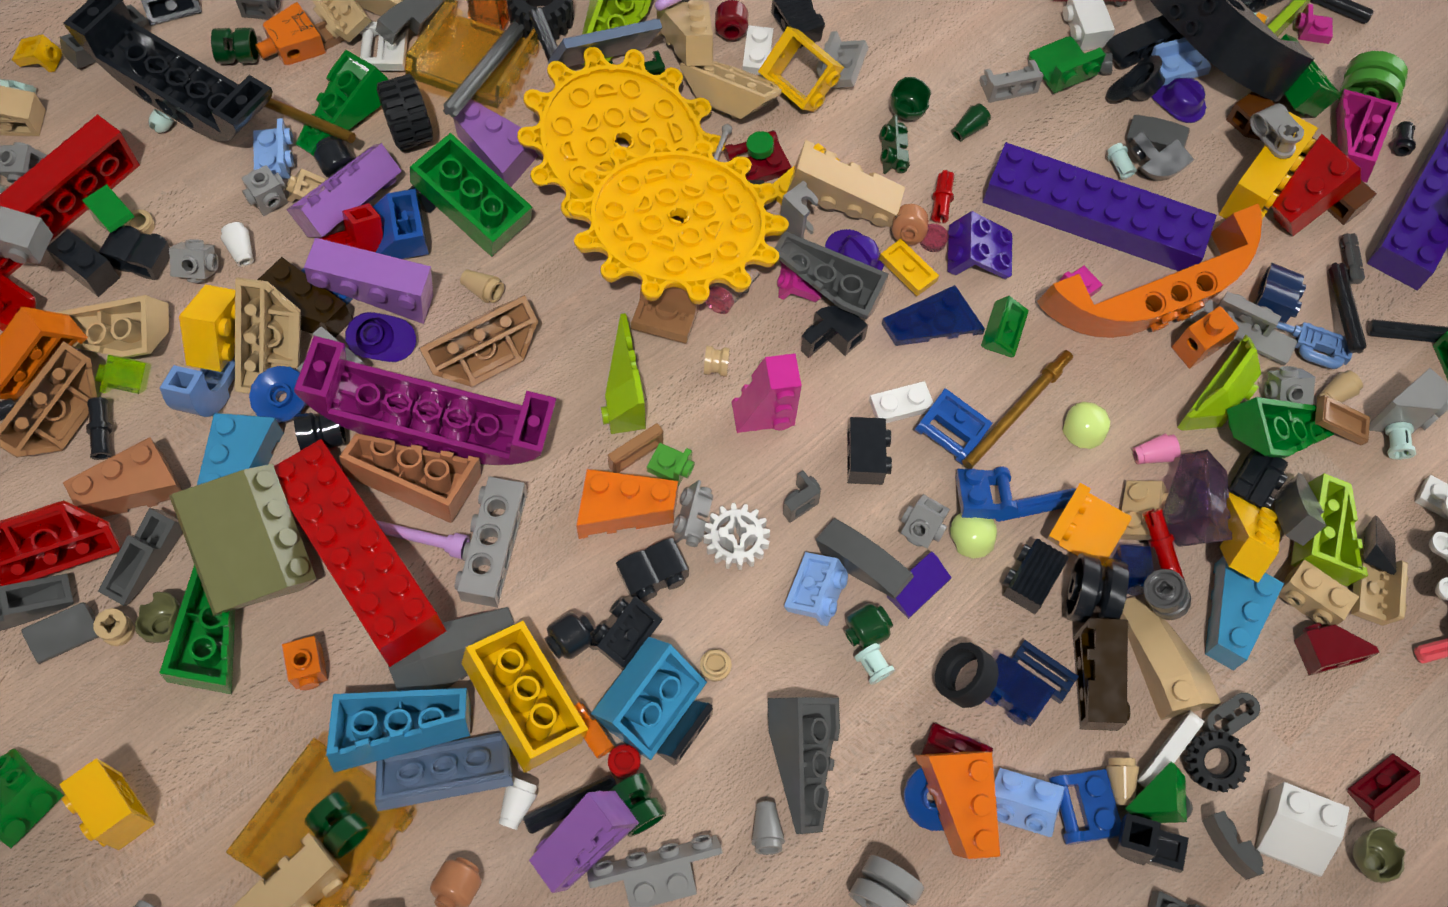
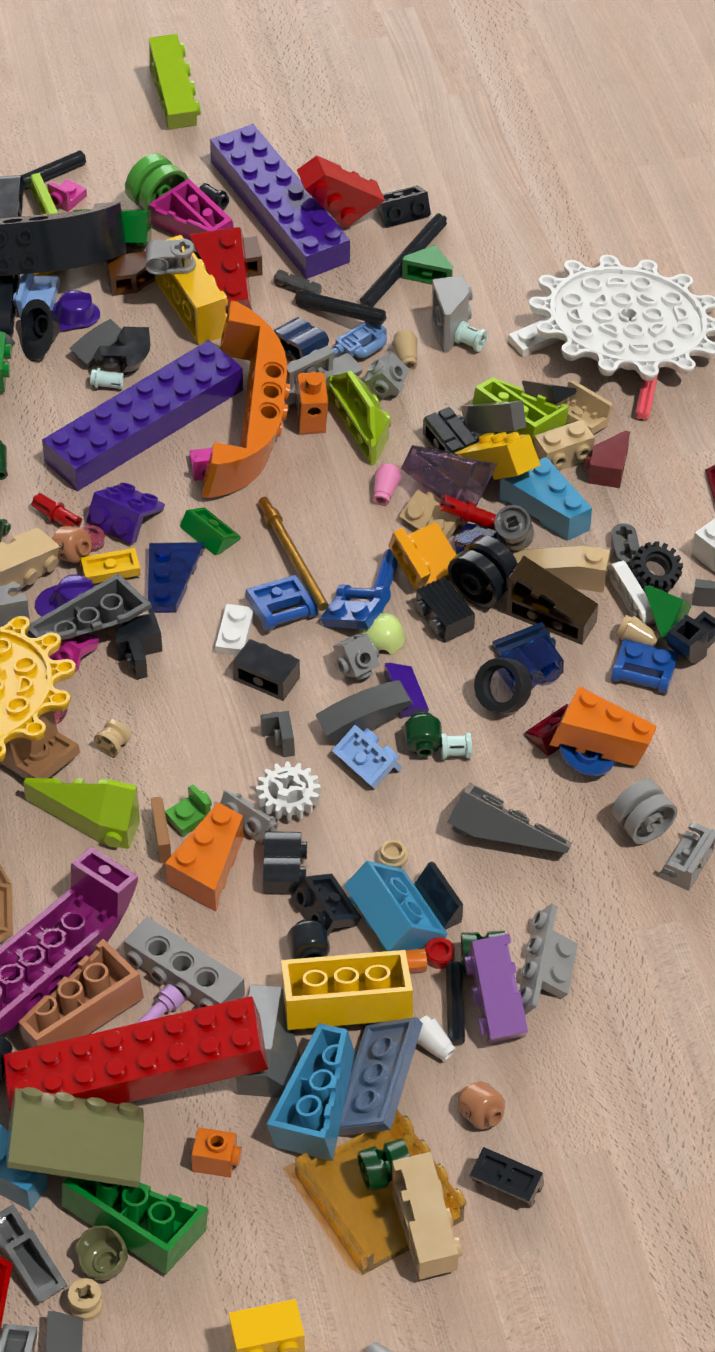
camera: 60 degrees left, 15 degrees down
(767, 829) = (552, 874): light grey cone -> none
(770, 397) = (183, 702): dark pink wedge -> none
(1027, 802) = (629, 690): light blue bracket -> none
(1086, 425) = (334, 518): yellowish green hair -> none
(1275, 426) = (416, 397): green wedge -> none
(1342, 420) = (433, 360): medium nougat tile -> none

